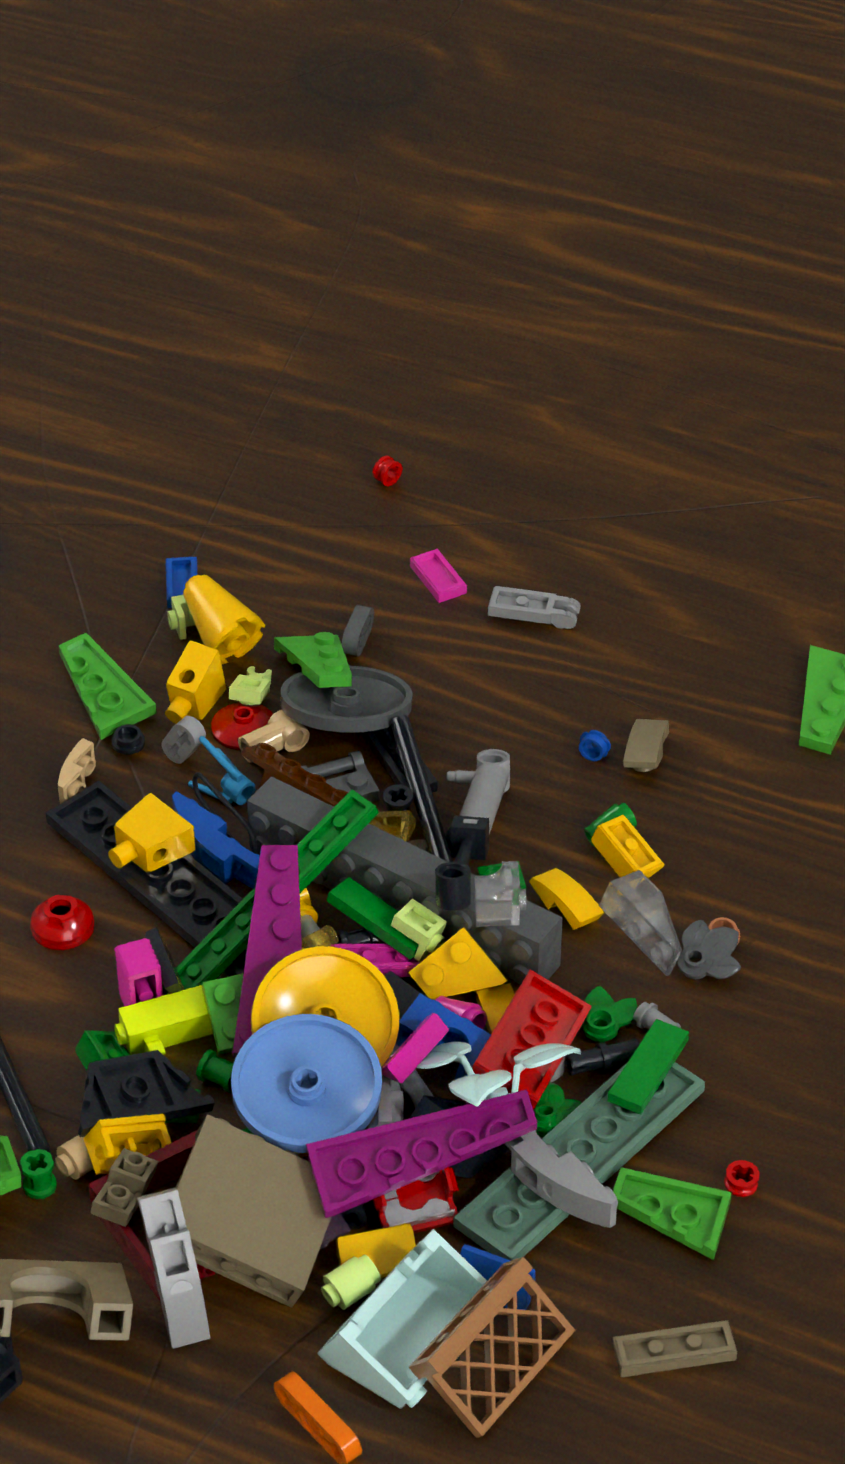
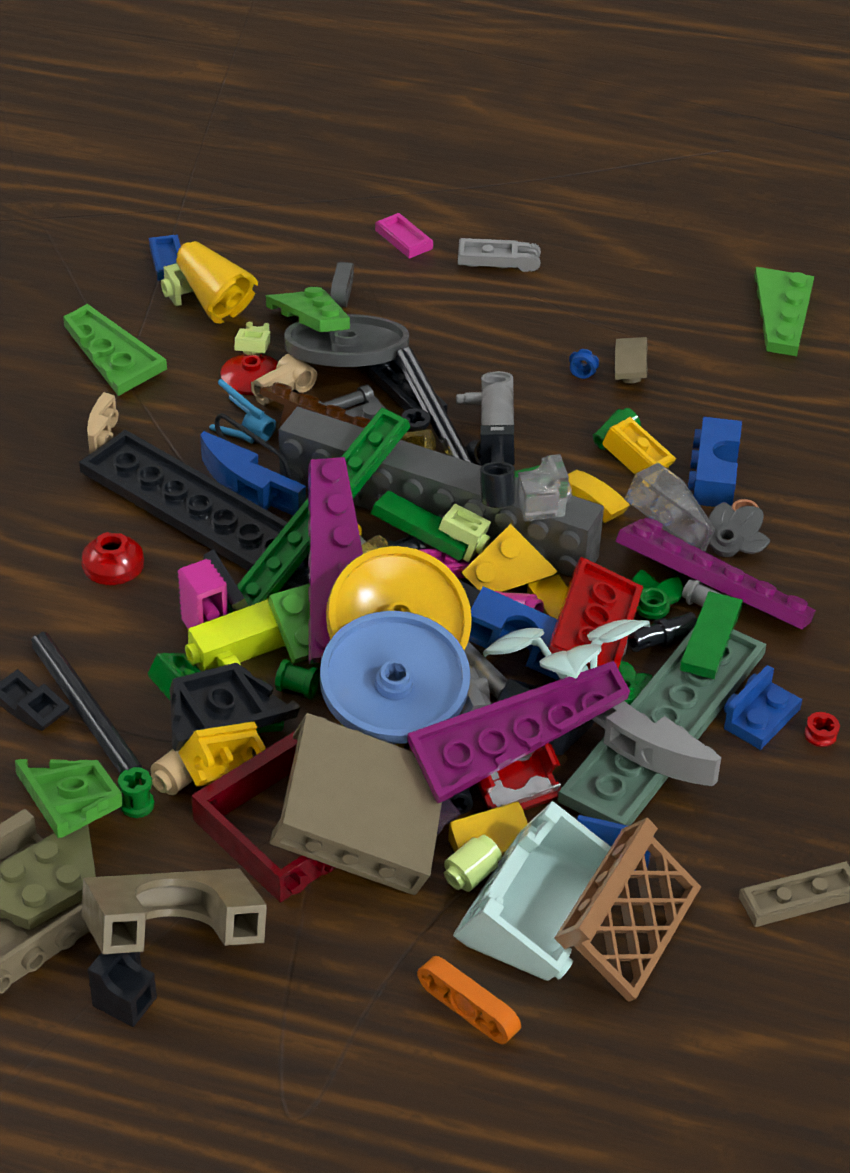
camera: 10 degrees left, 0 degrees up
(125, 1183) = (229, 794): dark tan slope -> none
(128, 739) = (145, 393): black plate -> none
(151, 836) = (189, 471): yellow torso -> none
(174, 1268) = (302, 865): light grey slope -> none
(183, 739) = (196, 383): light grey beam -> none
(195, 683) = (201, 337): yellow torso -> none
(387, 470) = (338, 153): red bush -> none
(415, 1048) = (492, 634): dark pink slope -> none
(635, 971) = (651, 541): none -> magenta wing
(675, 1208) = (770, 762): bright green wing -> none
(683, 1148) = (760, 709): none -> blue bracket
(699, 890) = (715, 461): none -> blue arch

